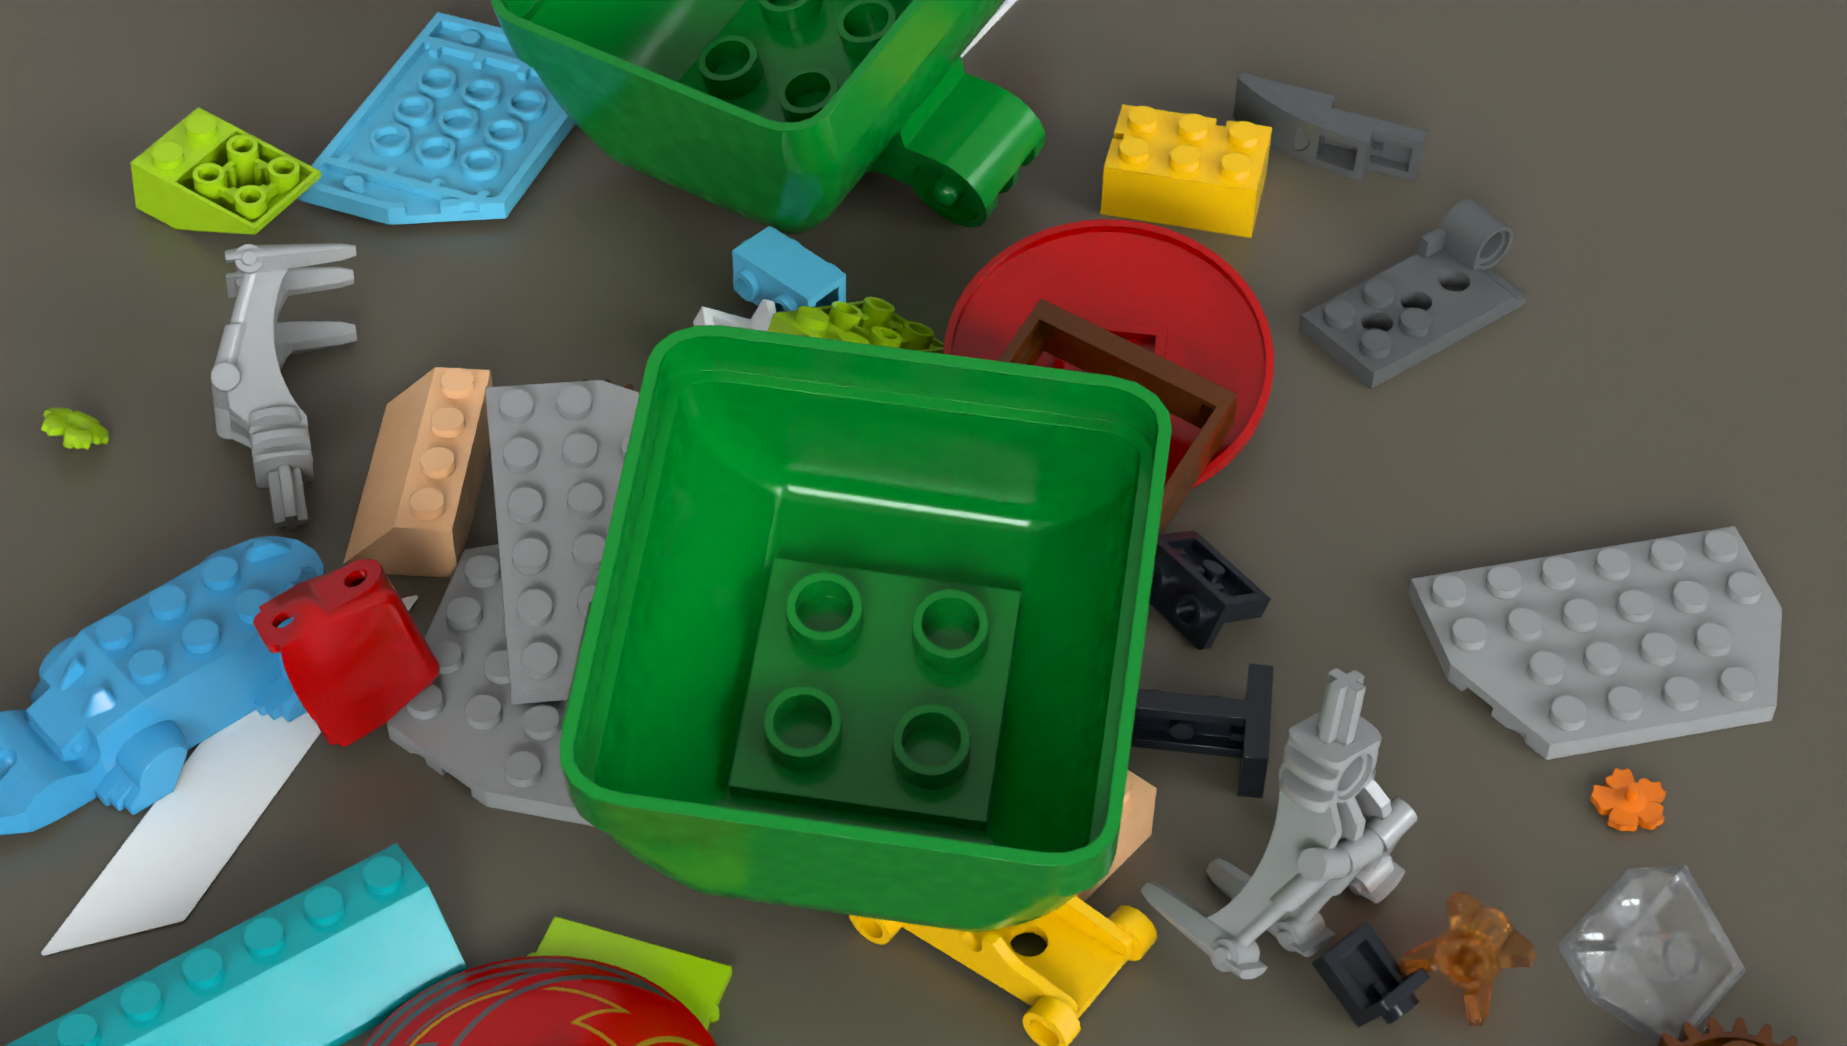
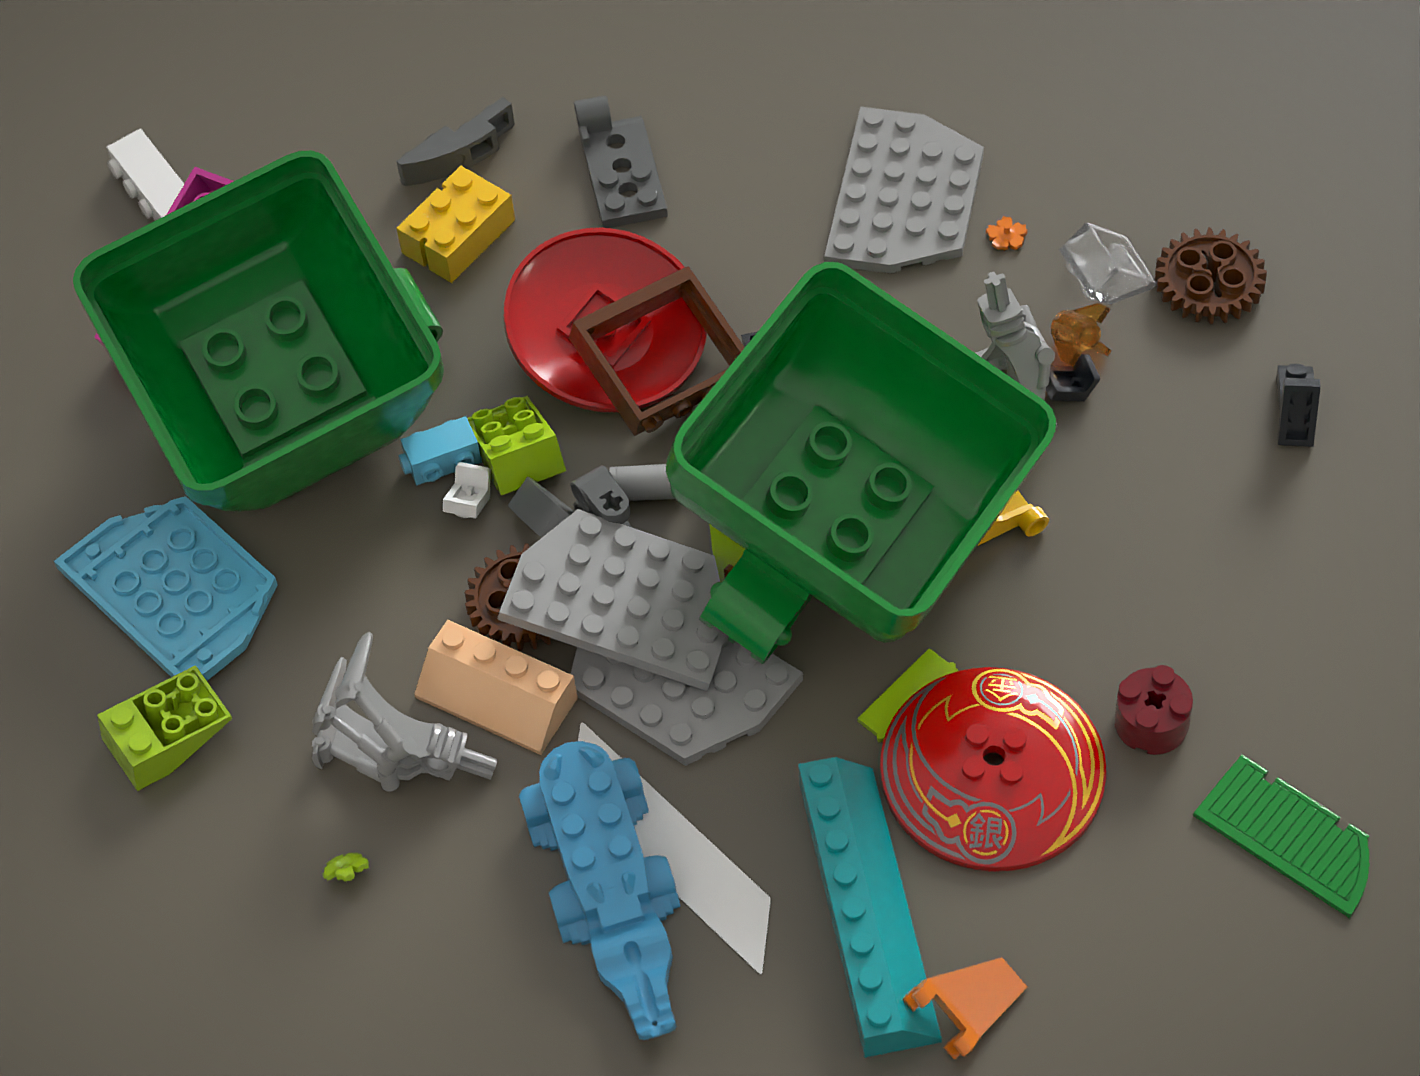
camera: 60 degrees left, 10 degrees up
(348, 649) = (654, 736): red piece -> none

